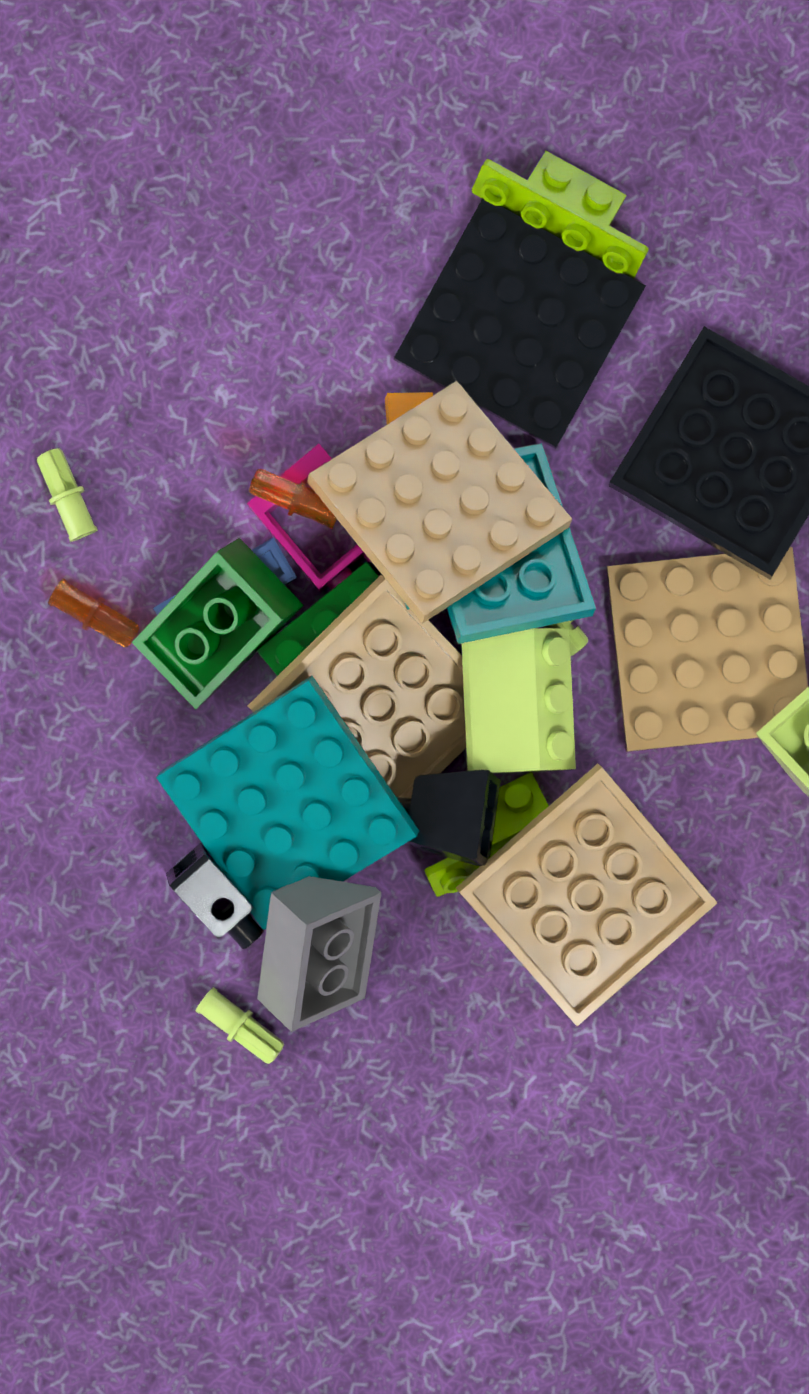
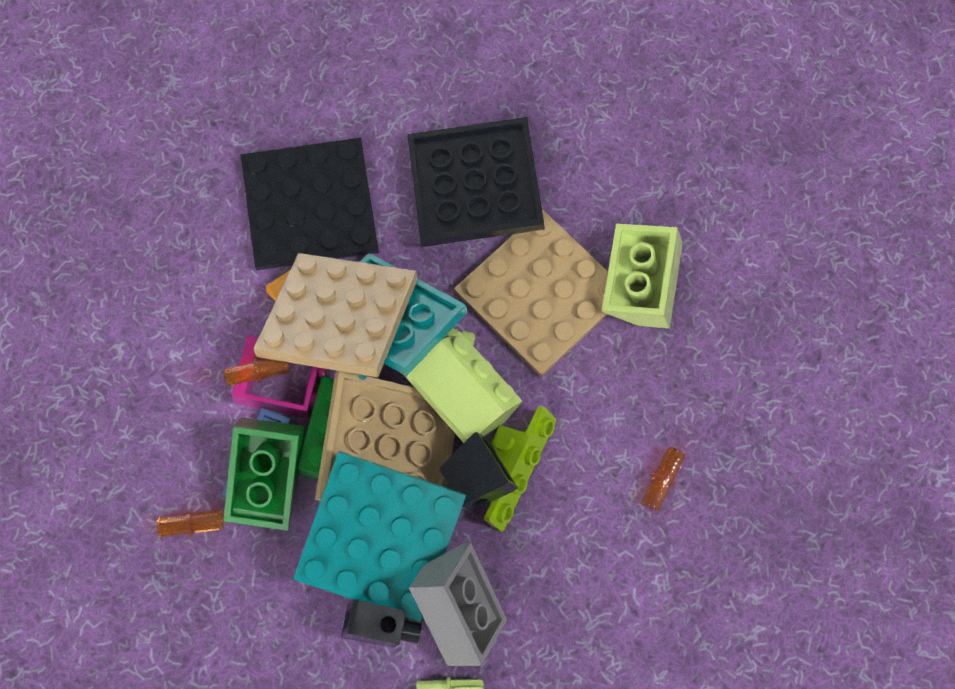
camera: 45 degrees left, 15 degrees down
(66, 494) = (125, 470): yellowish green axle -> none
(566, 205) = (288, 128): lime bracket -> none
(587, 895) = (582, 463): tan plate -> none
(668, 981) = (663, 478): none -> clear orange axle

